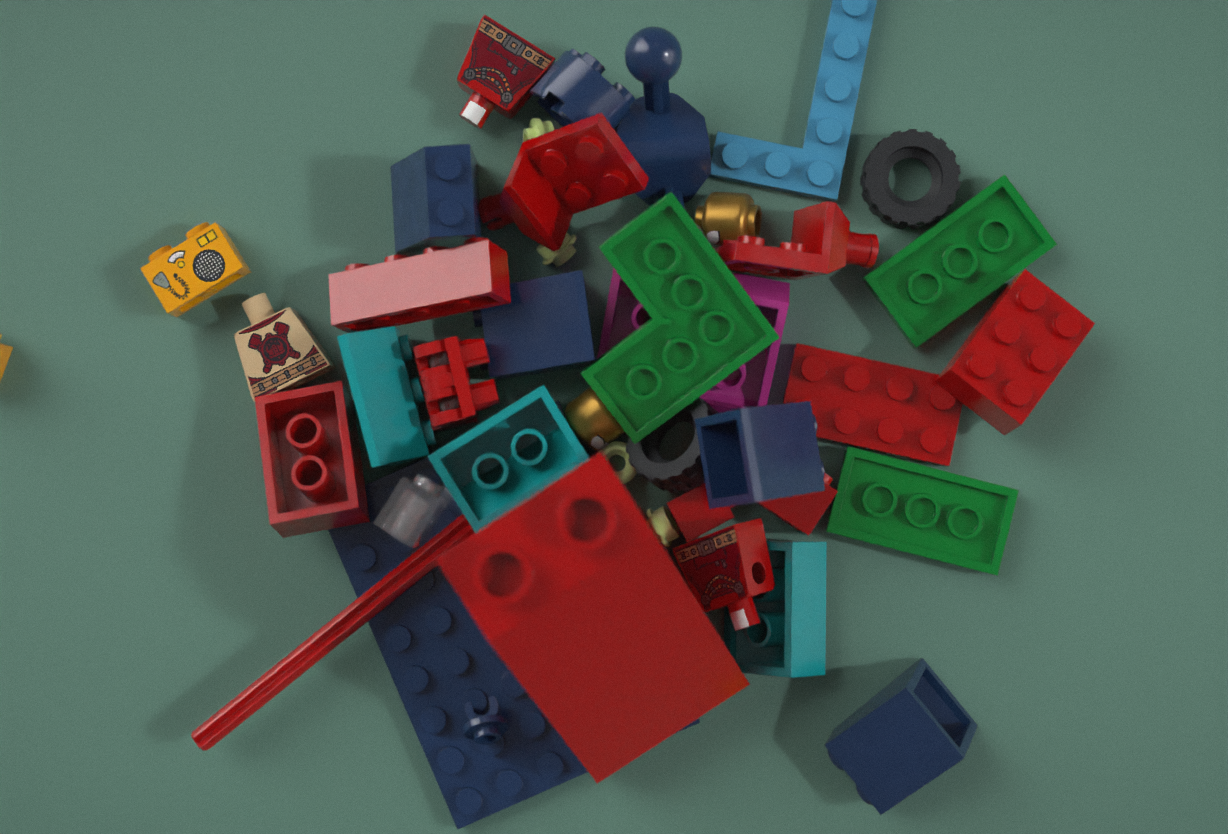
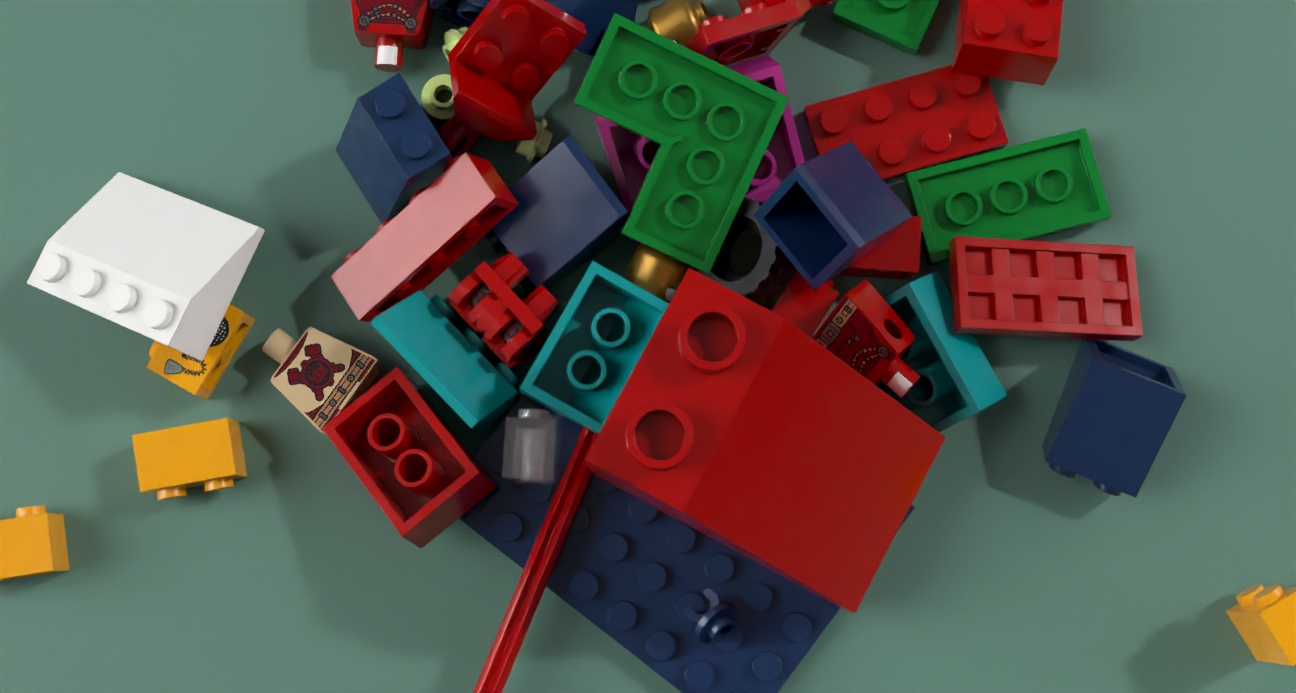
camera: 30 degrees left, 5 degrees down
(137, 359) = (189, 457): none -> light orange brick
(186, 183) = (149, 262): none -> white slope
(489, 167) = (435, 109): none -> yellowish green plate
(905, 605) = (1044, 289): none -> red plate

